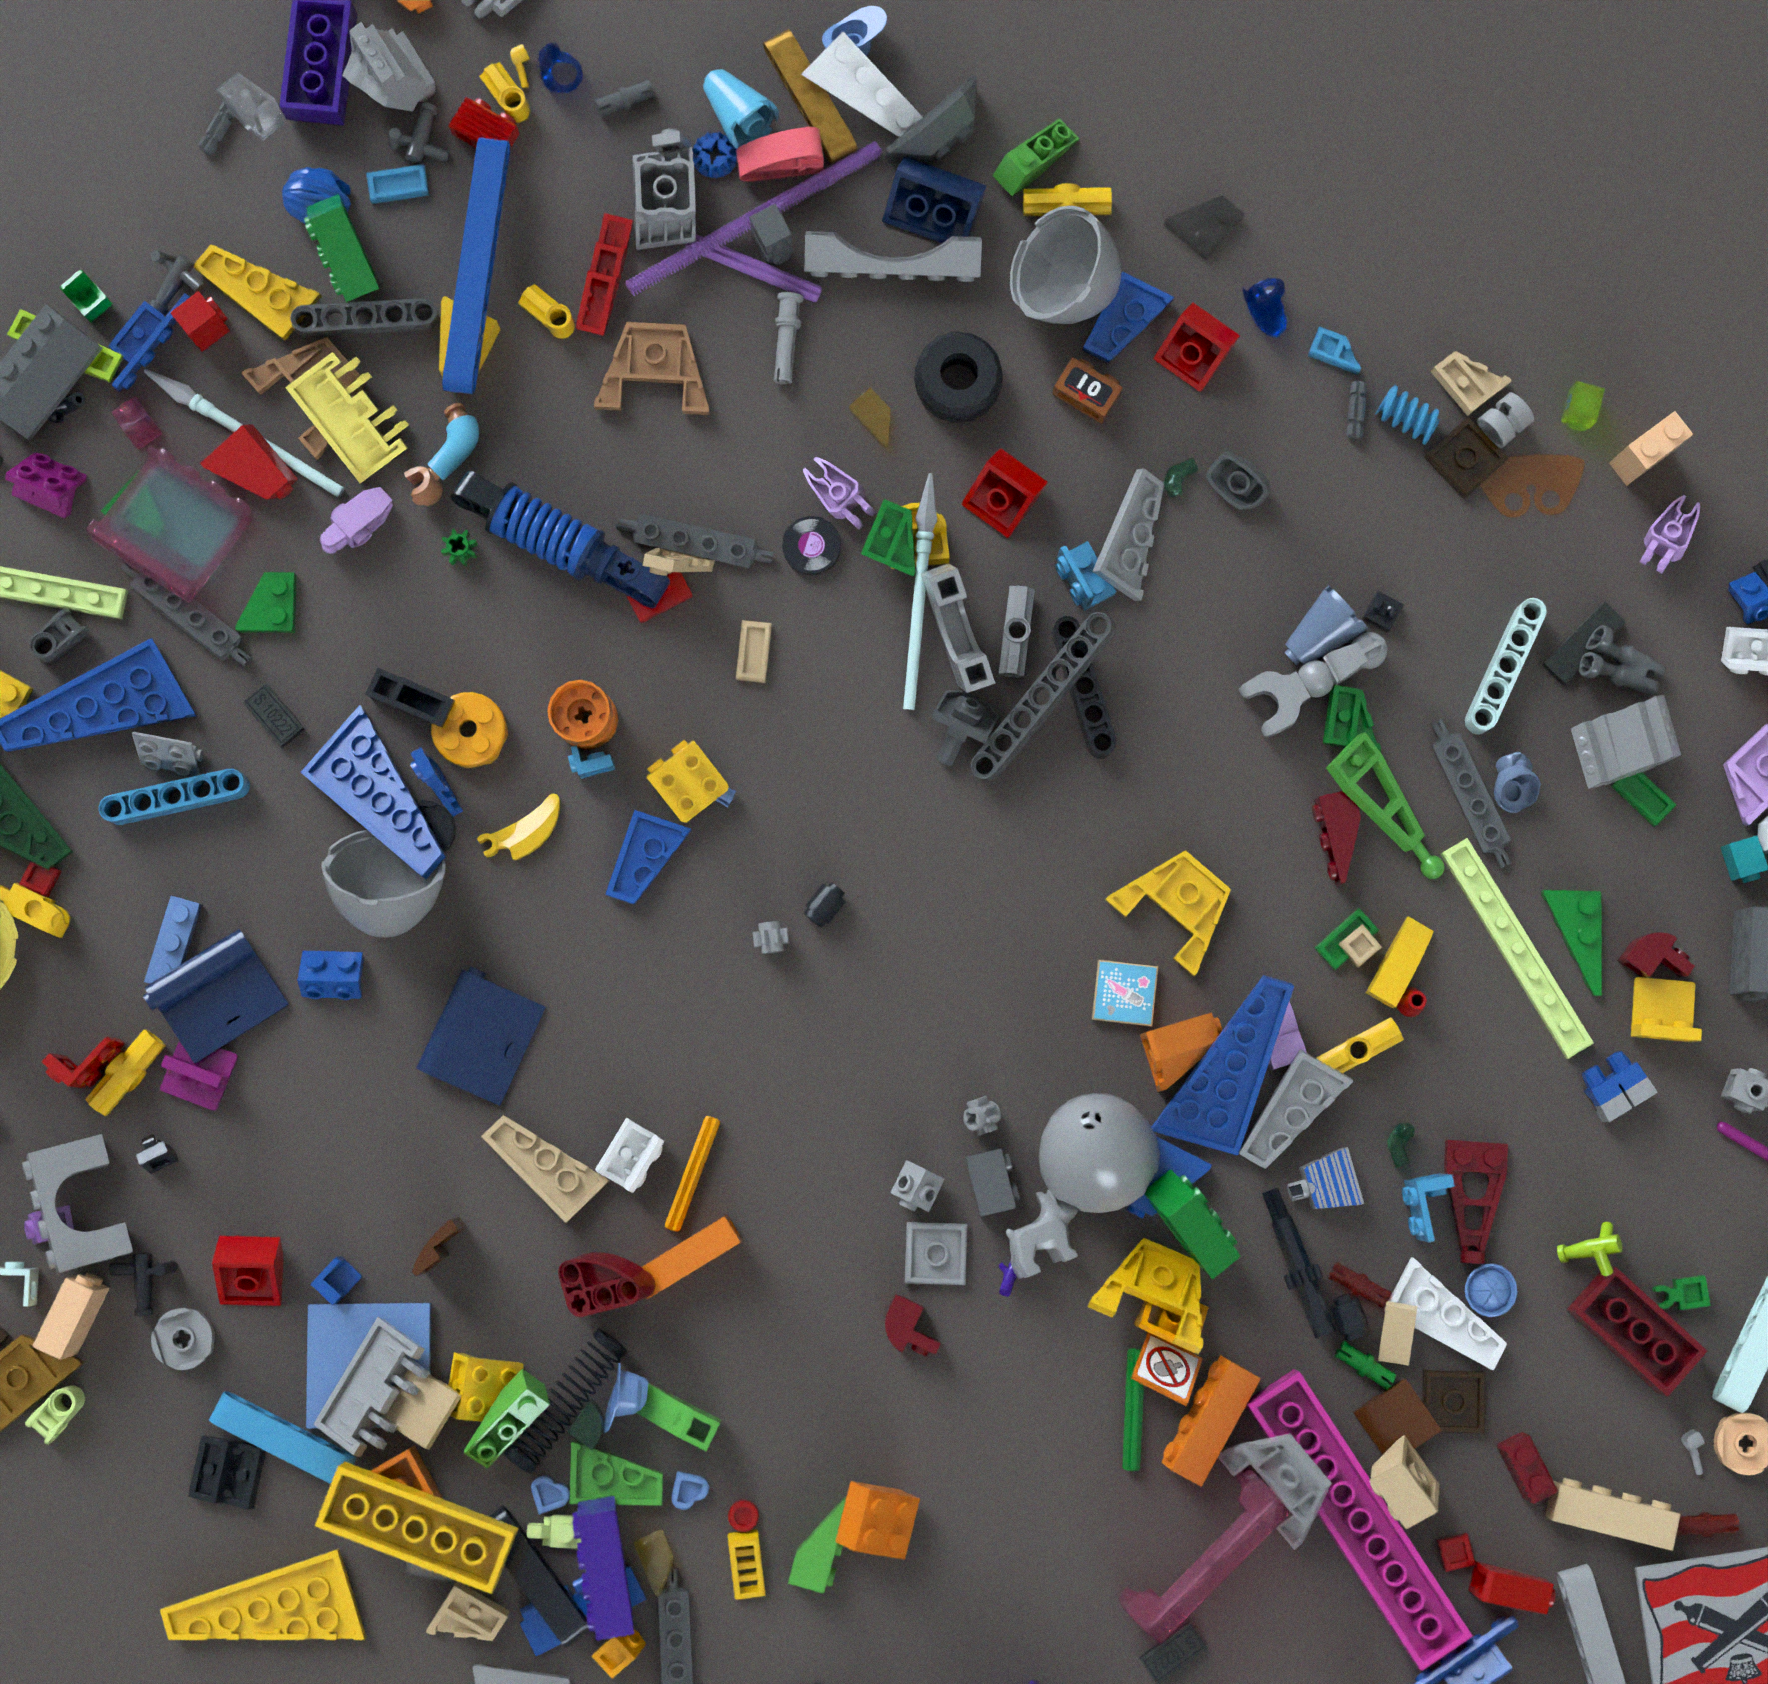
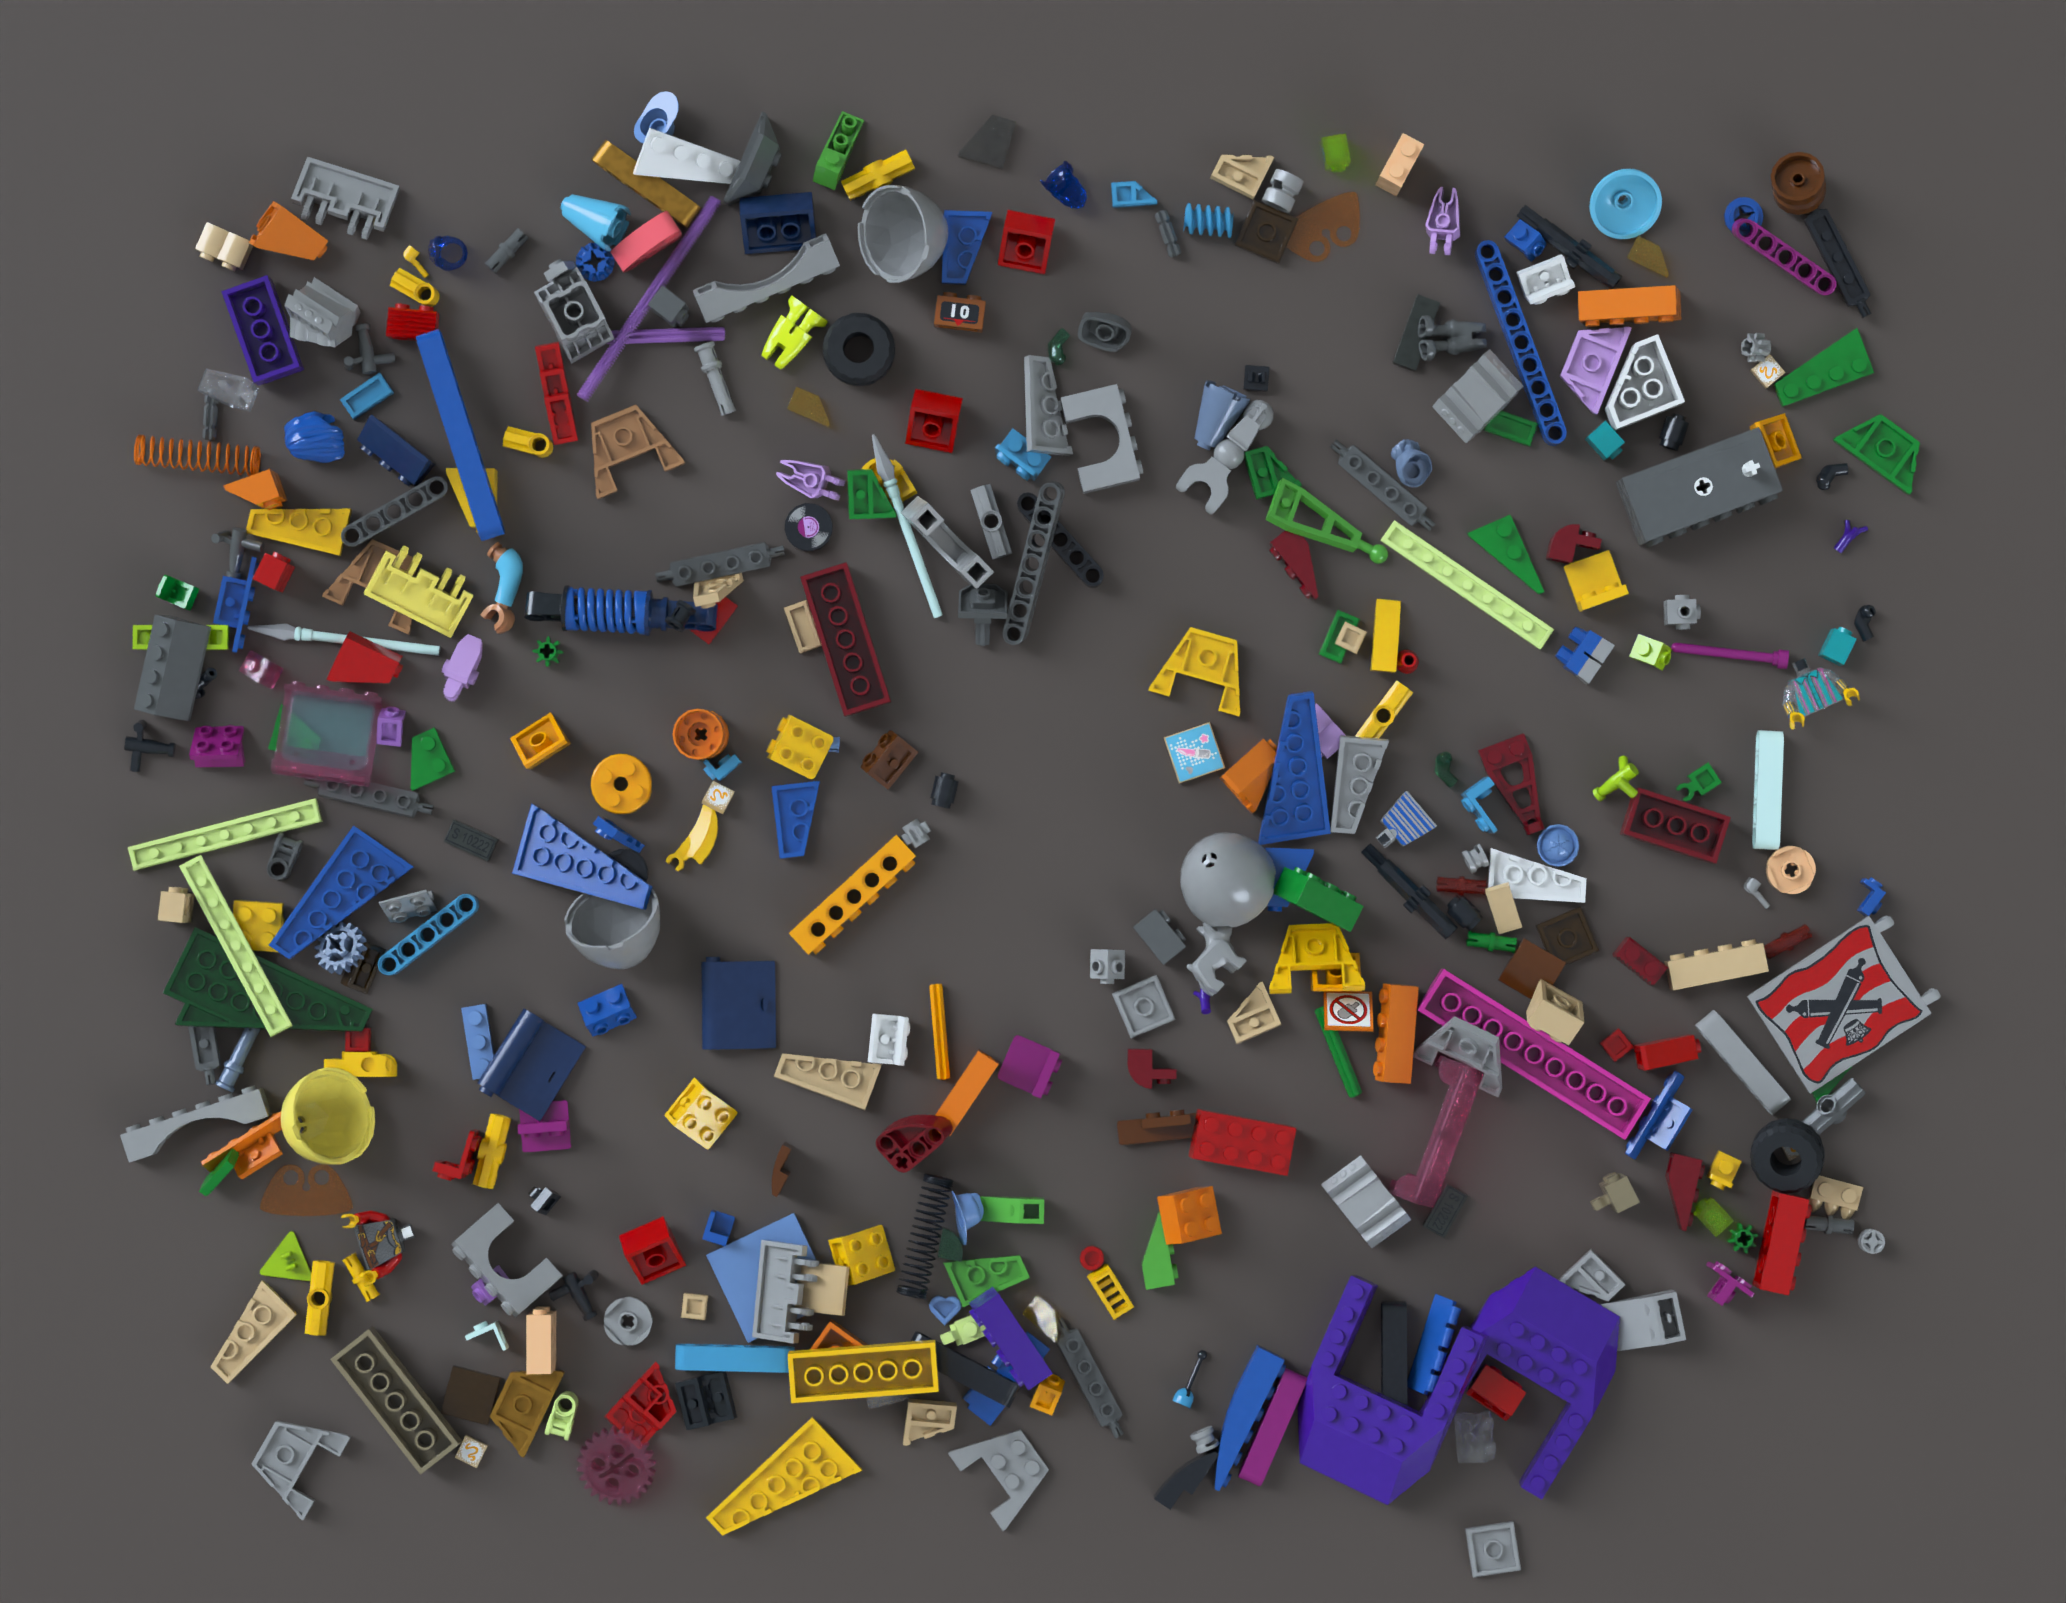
camera: 20 degrees left, 5 degrees up
(69, 766) = (330, 953): none -> sand blue gear
(82, 1472) = (629, 1482): none -> clear pink gear
(84, 799) = (361, 977): none -> dark brown slope
(128, 132) = (254, 460): none -> orange piece
(151, 1447) = (644, 1406): none -> red slope
(231, 224) = (260, 489): none -> orange slope
(246, 549) = (390, 726): none -> medium lavender bracket
(267, 1357) = (694, 1306): none -> tan tile
(340, 248) = (353, 470): green brick -> none
(378, 1141) = (700, 1114): none -> yellow bracket
(396, 253) = (394, 452): none -> dark blue slope
(402, 642) = (540, 741): none -> light orange slope
(409, 697) = (567, 781): black slope -> none
(507, 1418) = (890, 1267): bright green slope -> none
(569, 795) = (718, 797): none -> tile
(592, 988) = (803, 931): none -> light orange brick
(621, 571) = (680, 616): none -> black bush
(688, 1489) = (1043, 1258): medium blue tile -> none
(775, 1261) = (1029, 1066): none -> magenta bracket
(779, 841) = (888, 759): none -> reddish brown bracket
(794, 685) = (845, 639): none -> dark red brick
(889, 329) = (789, 335): none -> neon yellow piece
(898, 1405) = (1156, 1127): none -> reddish brown bracket
(977, 1463) = (1242, 1142): none -> red brick
(982, 1115) = (1130, 891): light grey gear -> none
(1056, 1323) = (1254, 1016): none -> tan wing
(1088, 1601) = (1366, 1202): none -> light grey slope
(1204, 563) = (1105, 404): none -> light grey arch
(1390, 1261) = (1475, 858): none -> light grey wheel
(1515, 656) = (1368, 366): light aqua beam -> none
(1693, 1119) = (1651, 652): none -> bracket
(1703, 694) = (1521, 330): none -> blue beam

